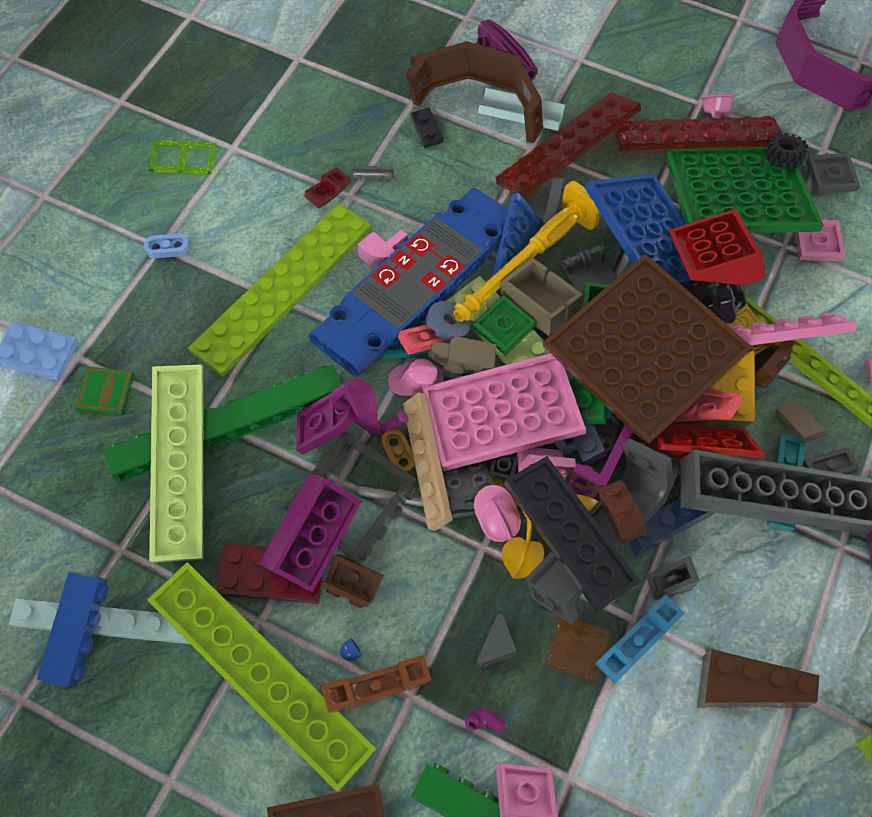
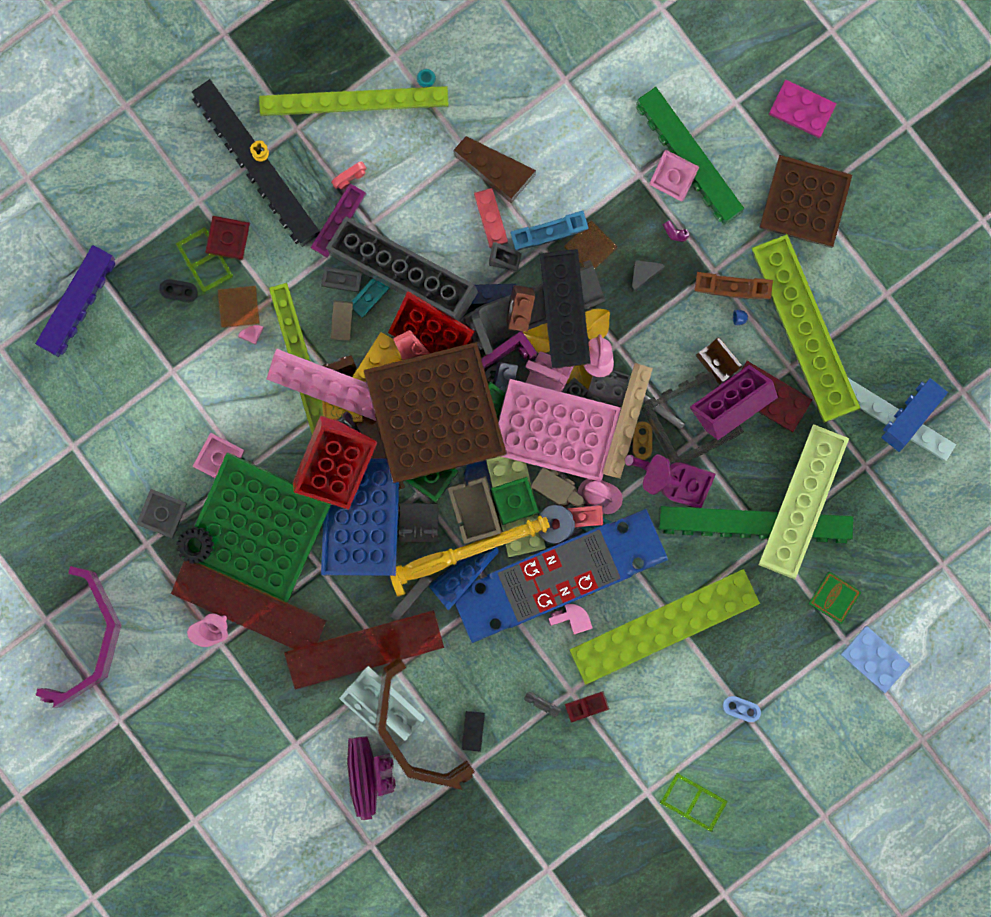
camera: 155 degrees left, 20 degrees up
(716, 622) = (490, 217): none -> coral plate

